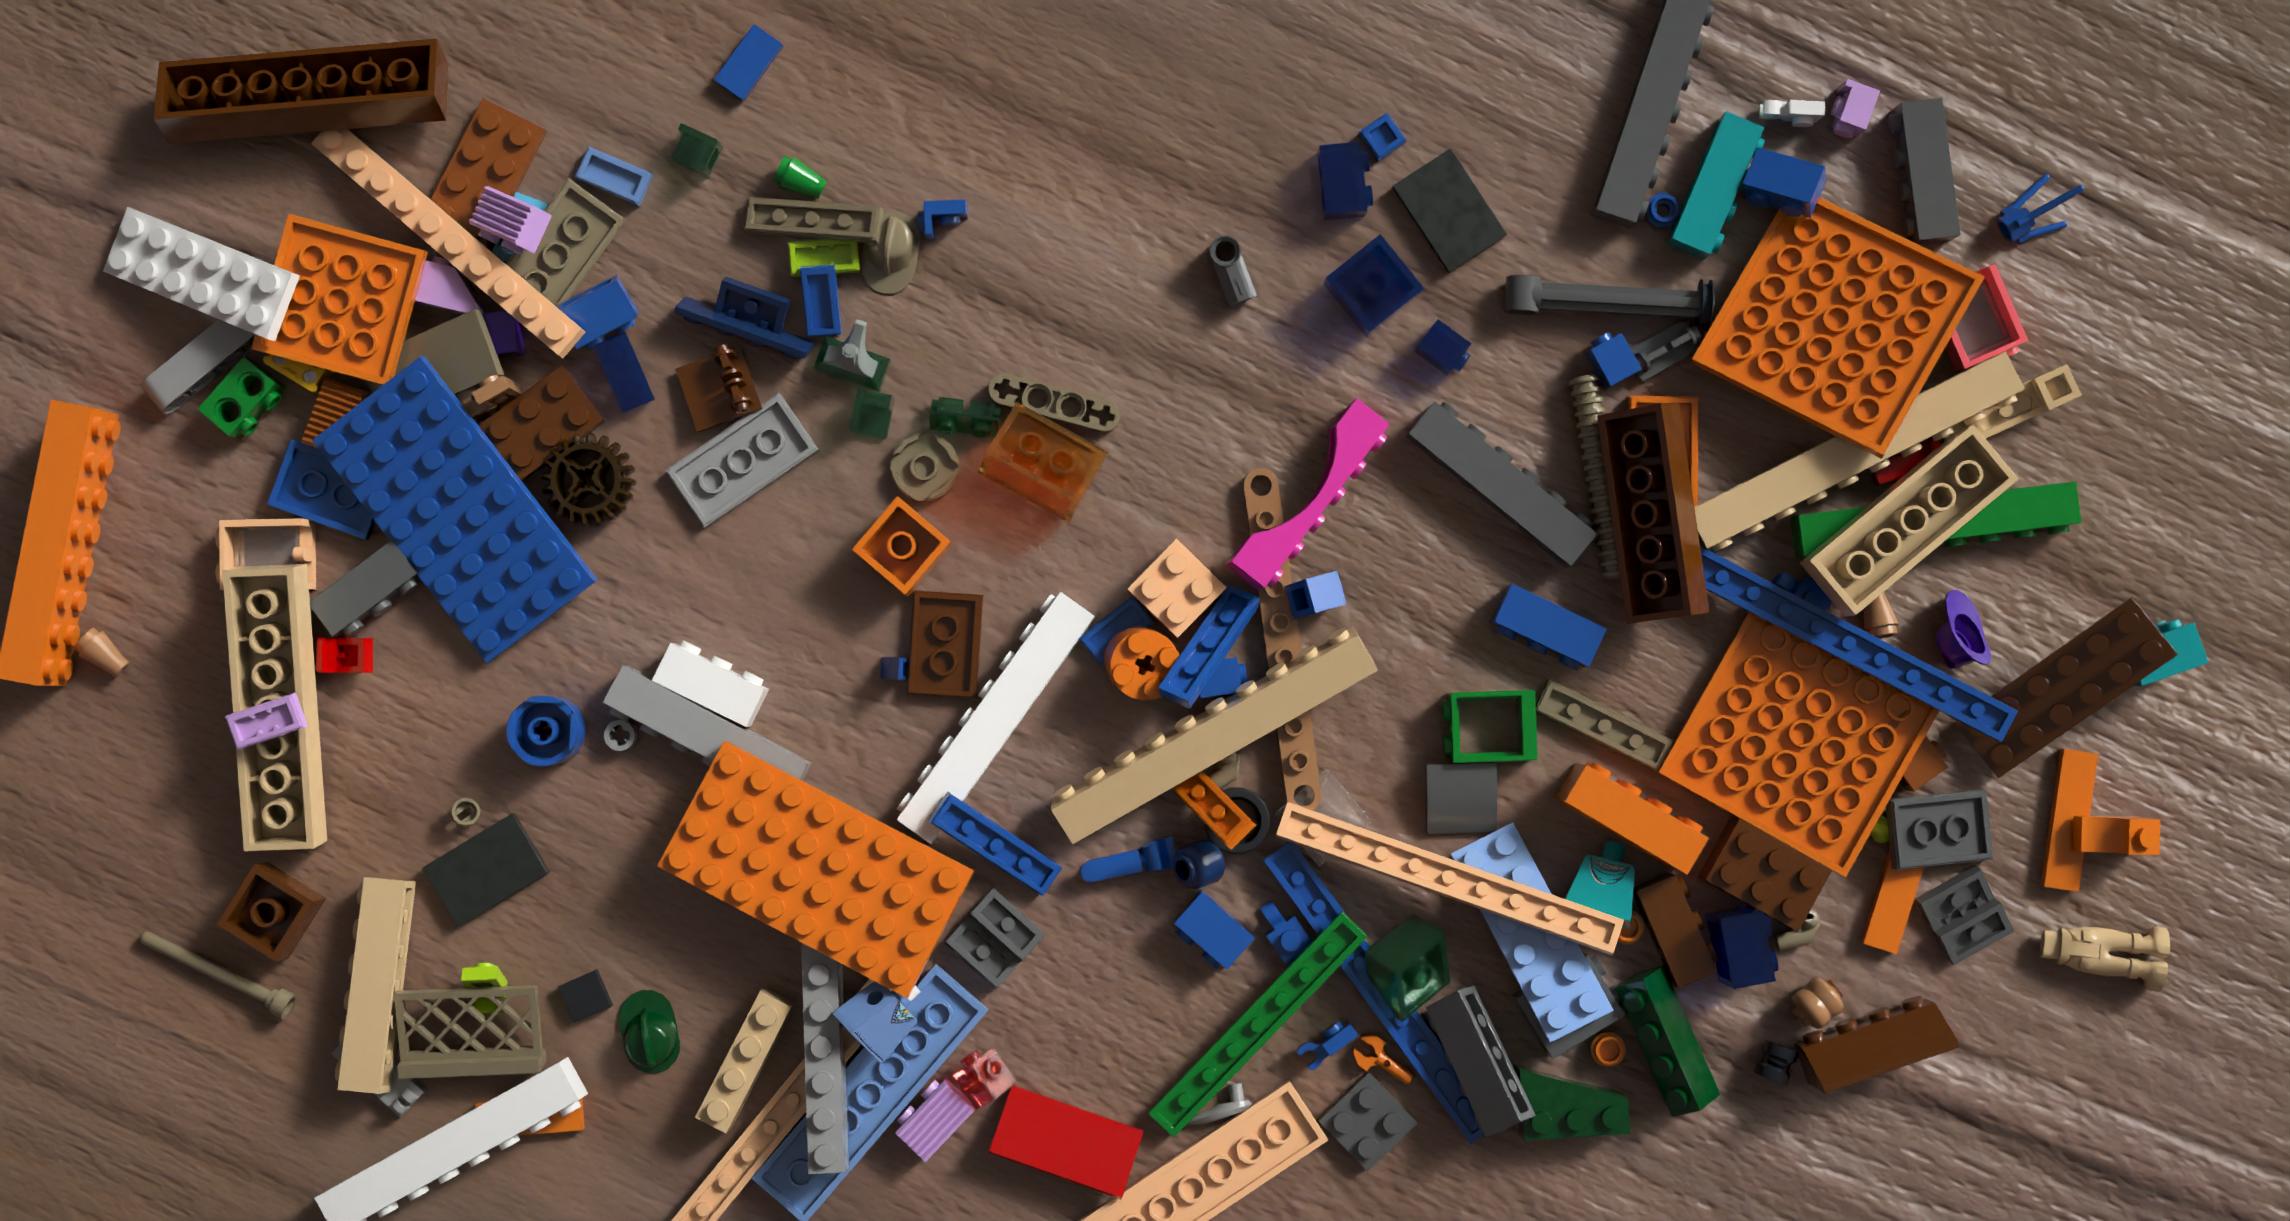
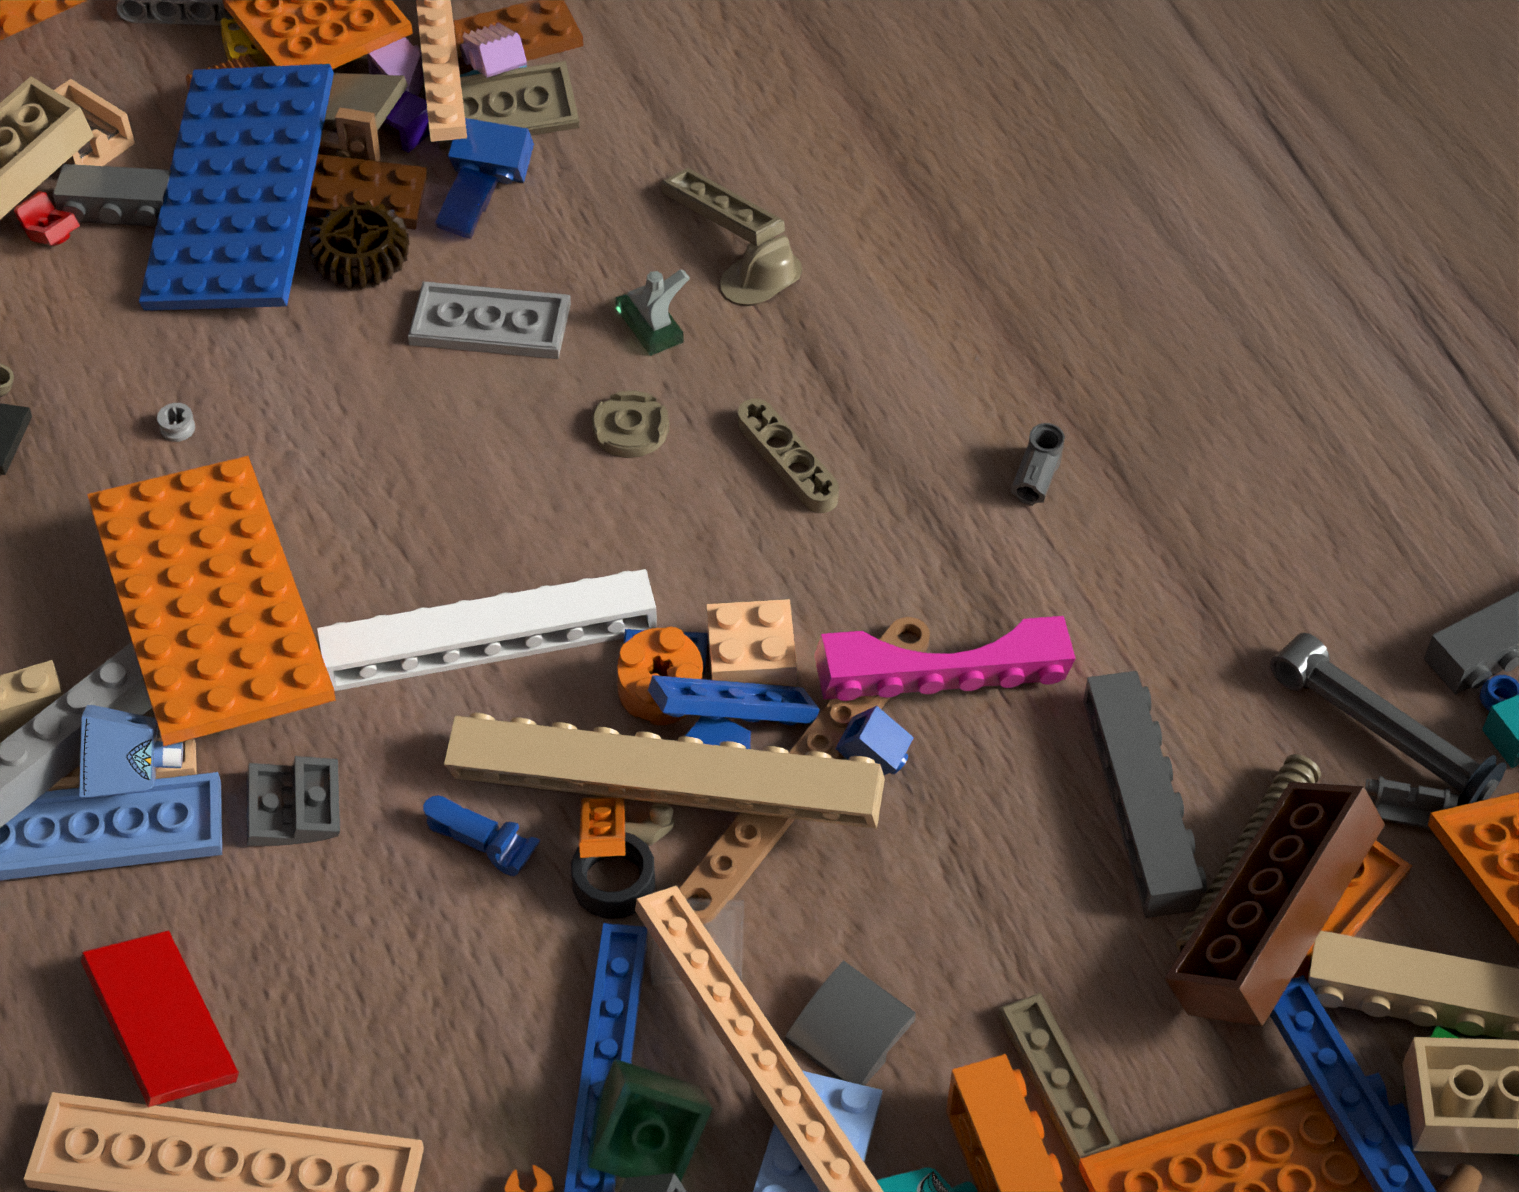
camera: 40 degrees right, 35 degrees down
(236, 390) = (179, 35): green brick -> none
(315, 491) = (156, 119): blue plate -> none
(542, 749) = (124, 367): blue brick -> none
(614, 176) = (601, 96): medium blue tile -> none
(690, 723) = (233, 434): light grey brick -> none
(696, 150) = (682, 121): clear green panel -> none
(711, 683) = (288, 435): white brick -> none
(718, 388) = (528, 259): reddish brown hinge -> none
(748, 62) = (780, 97): blue tile -> none
(749, 314) = (608, 230): dark blue bracket -> none
(799, 178) = (739, 177): green cone -> none
(820, 300) = (673, 252): blue tile -> none
(824, 252) = (704, 238): lime plate -> none
(872, 413) = (627, 354): clear green panel -> none
(893, 668) = (447, 535): blue piece -> none
(902, 546) = (550, 449): orange brick -> none
(934, 1119) = (70, 898): lavender brick -> none
(945, 644) = (507, 551): reddish brown tile -> none
(947, 211) = (830, 268): blue bracket -> none
(980, 421) = (698, 412): clear green hinge -> none
(983, 1077) = (151, 895): clear red brick -> none
(995, 843) = (378, 717): blue tile -> none
(1042, 462) = (730, 477): clear orange slope -> none
(1199, 864) = (539, 876): dark blue head -> none
(1212, 930) = (493, 946): blue brick -> none
(1224, 1110) = (354, 1122): light grey bar -> none
(1257, 1024) = (446, 1057): green plate -> none
(1287, 935) = (558, 1015): blue plate -> none
(1335, 1038) = (501, 1141): blue plate -> none
(1344, 180) = (1203, 471): clear blue brick -> none
(1373, 285) = (1160, 553): clear blue brick -> none
(1382, 137) = (1270, 472): blue tile -> none
(1444, 348) = (1183, 648): clear blue brick -> none
(1449, 210) = (1285, 562): pearl dark grey tile -> none
(1525, 719) = (993, 977): green window -> none
(1547, 627) = (1080, 942): blue brick -> none
(1612, 359) = (1347, 762): blue brick -> none

